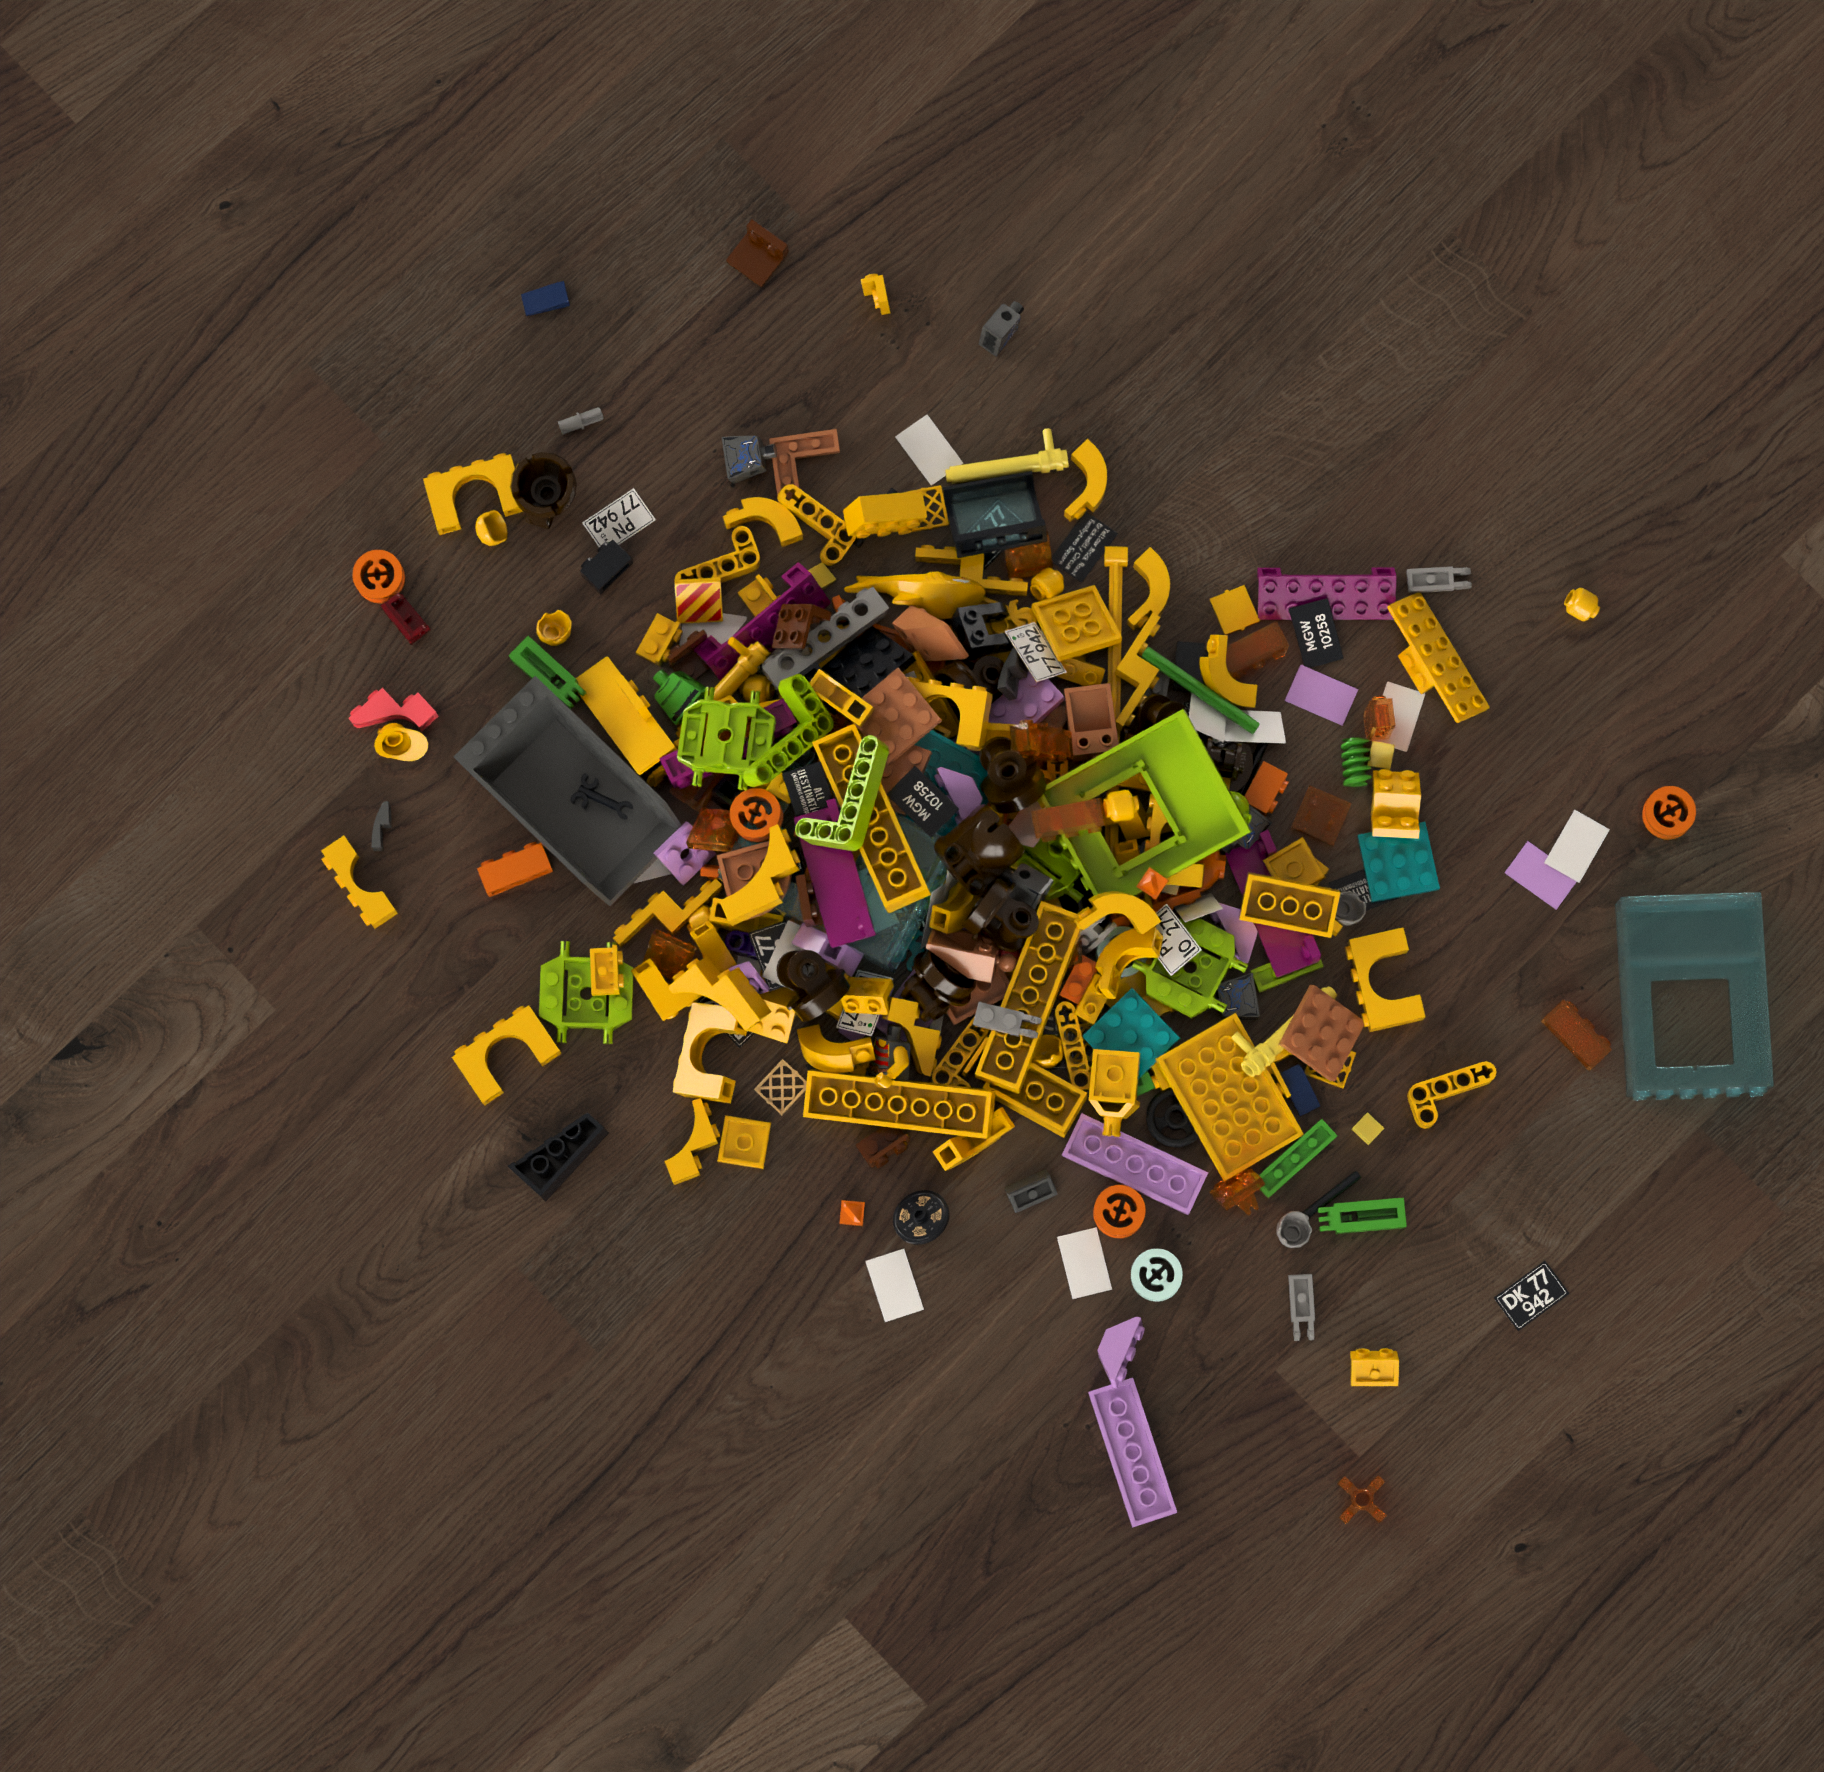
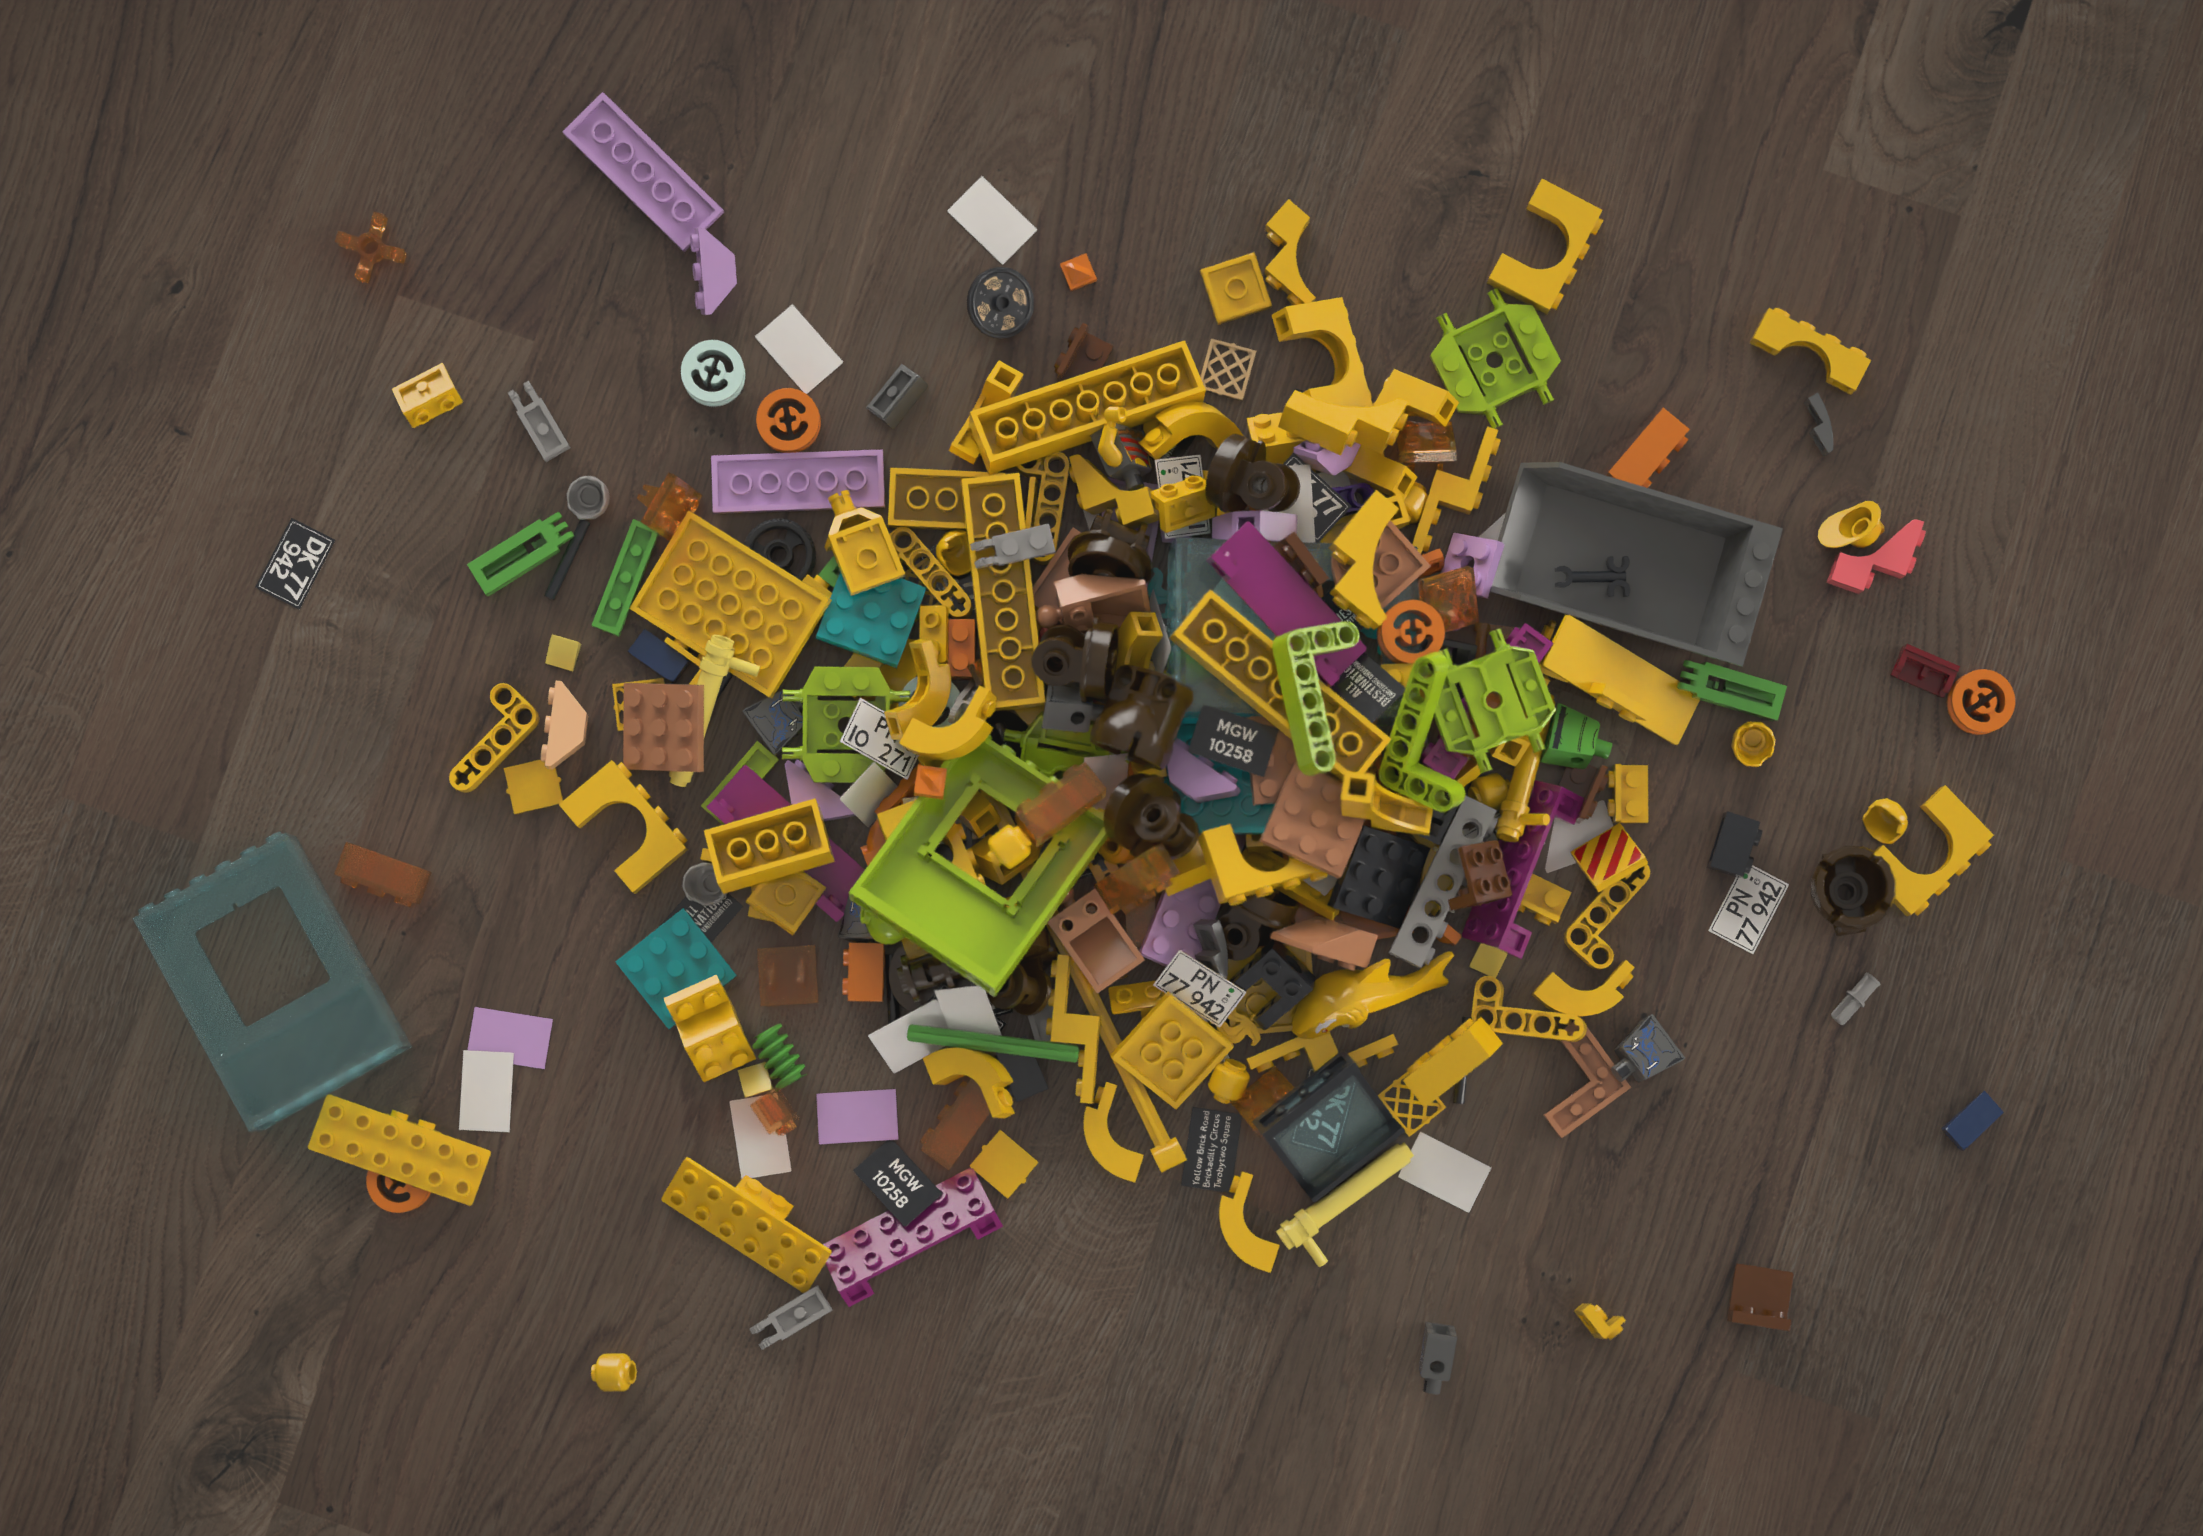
camera: 150 degrees right, 5 degrees up
(559, 1156) = (1429, 158): black wedge -> none
(605, 971) = (1485, 387): yellow bracket -> none
(1393, 1073) = (565, 726): none -> light nougat slope
(1436, 1045) = (532, 786): none -> yellow piece
(1658, 831) = (399, 1149): none -> yellow bracket

